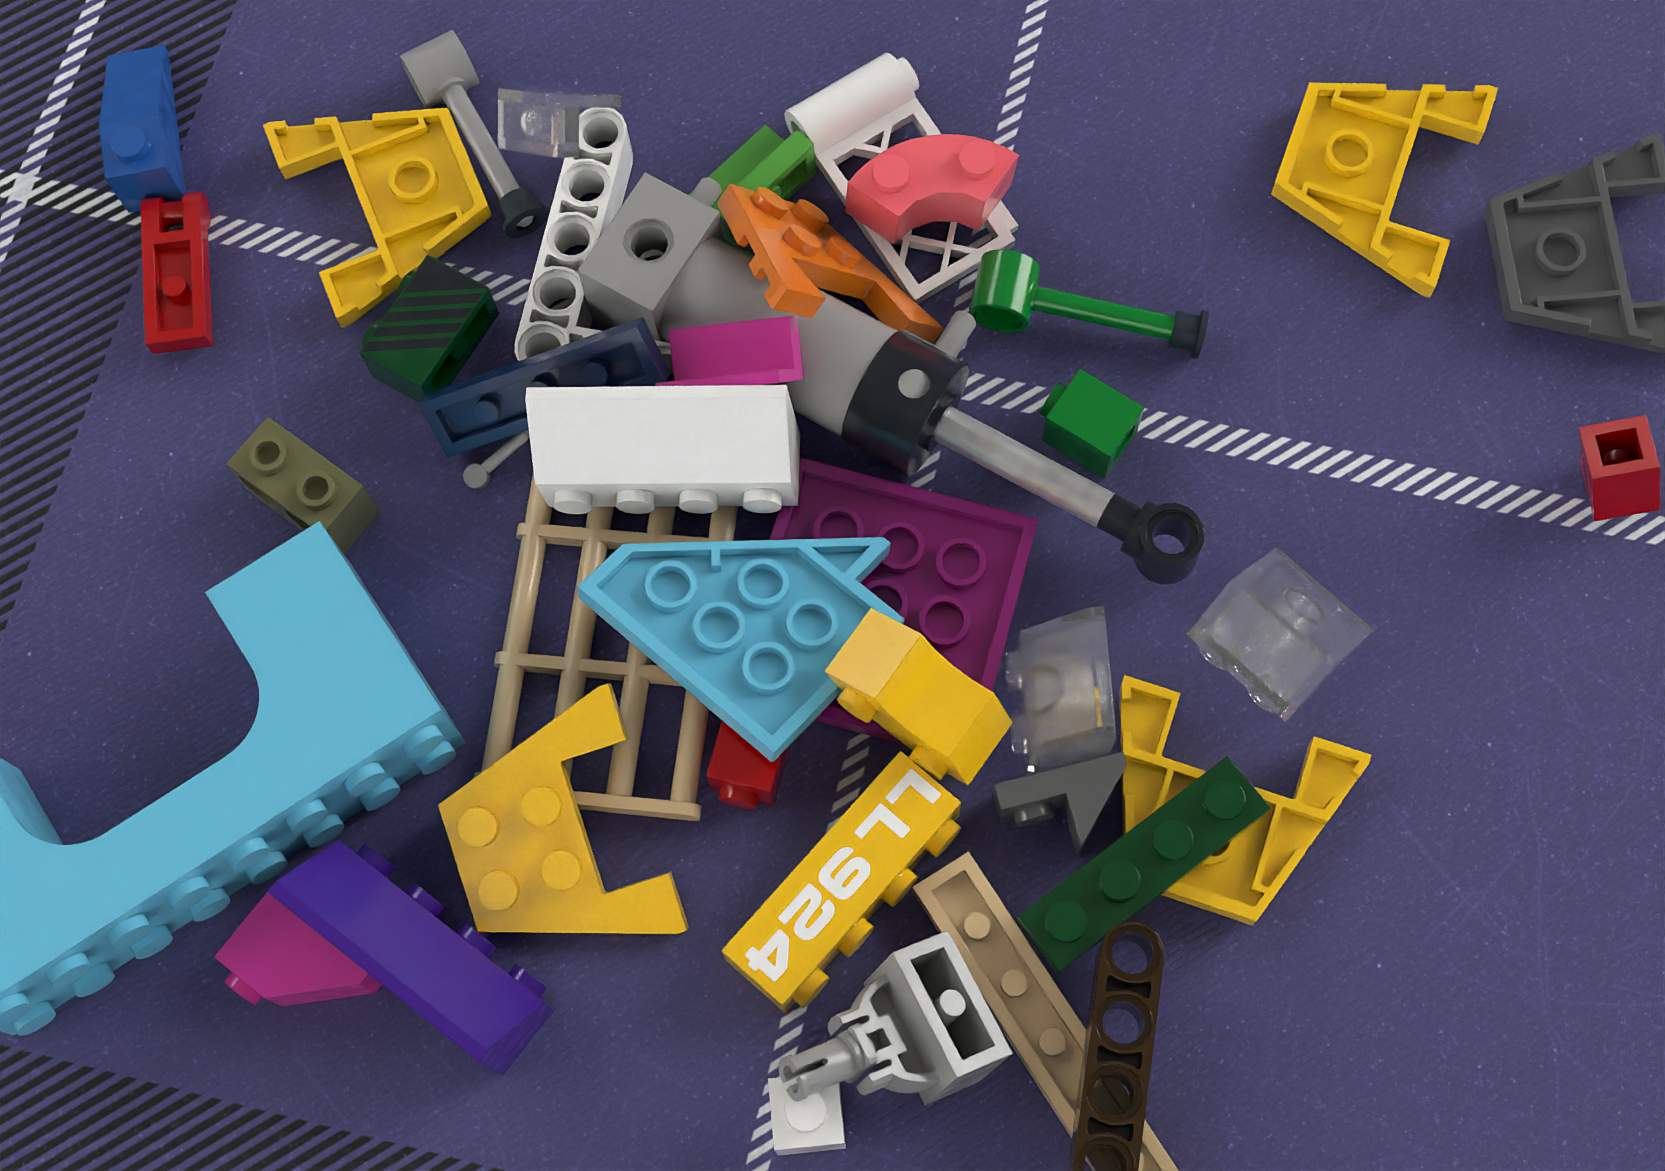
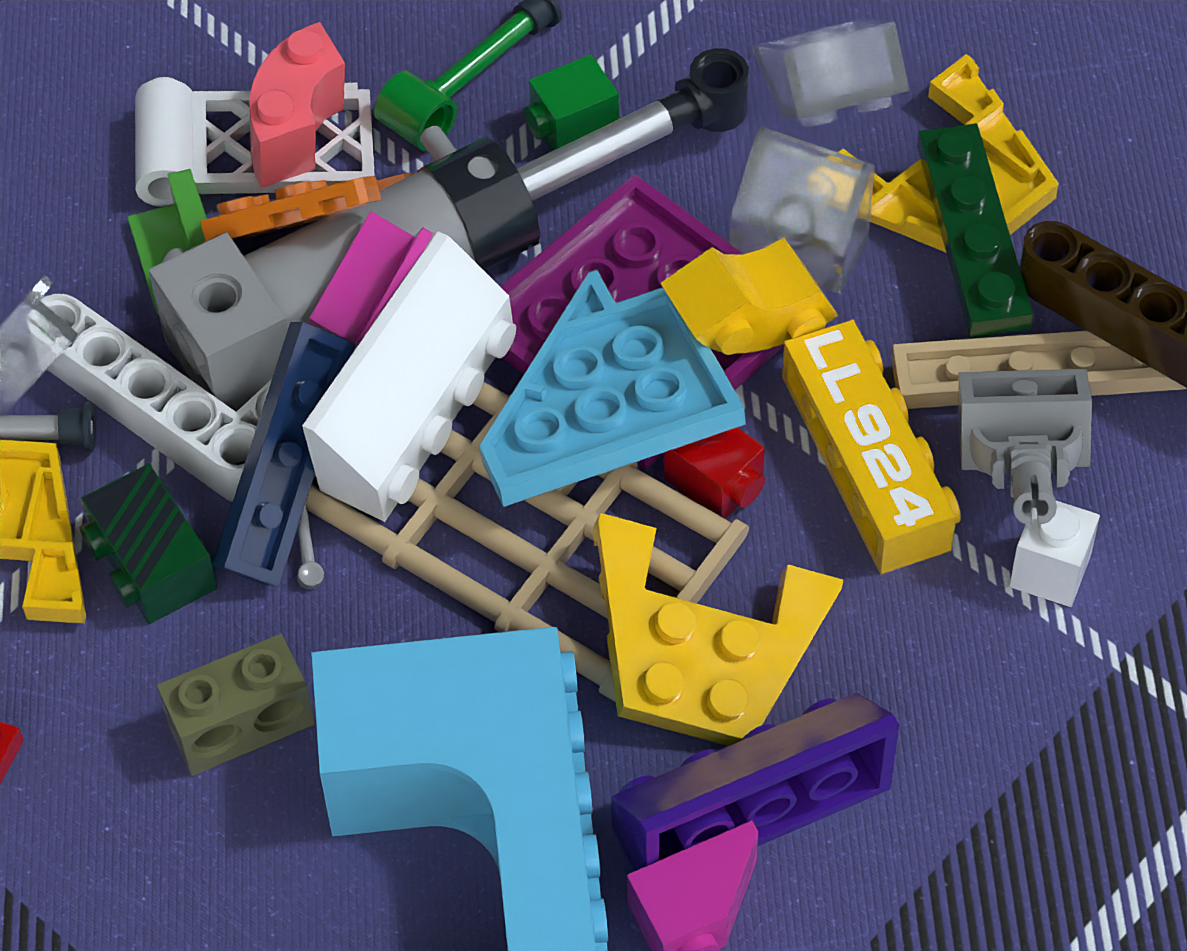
camera: 65 degrees left, 15 degrees down
(1076, 788) = (889, 257): dark grey slope -> none

